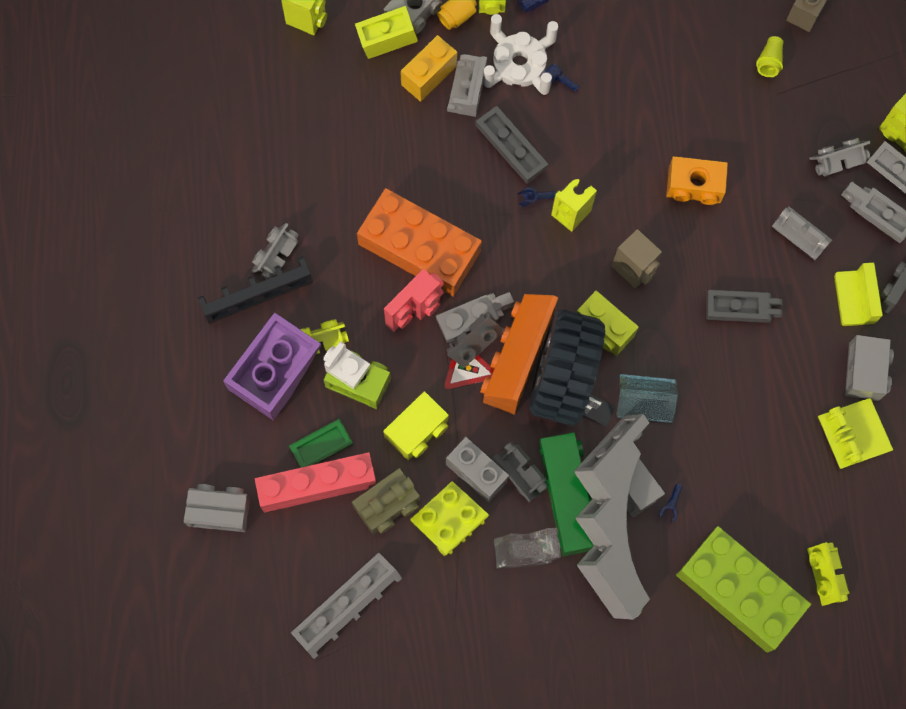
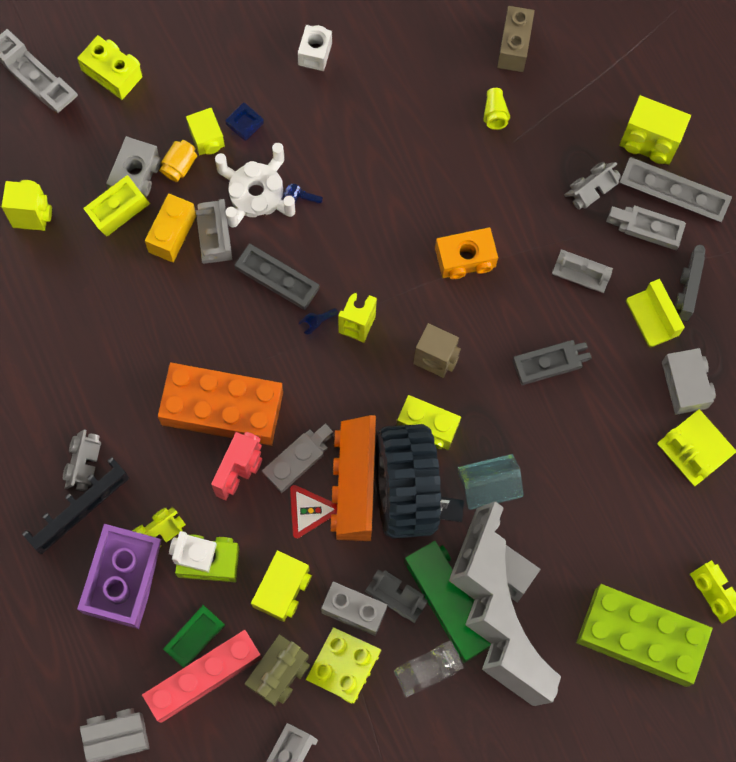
camera: 20 degrees left, 0 degrees up
(470, 345) = (304, 490): dark grey hinge -> none
(672, 503) = (549, 575): clear blue hand -> none

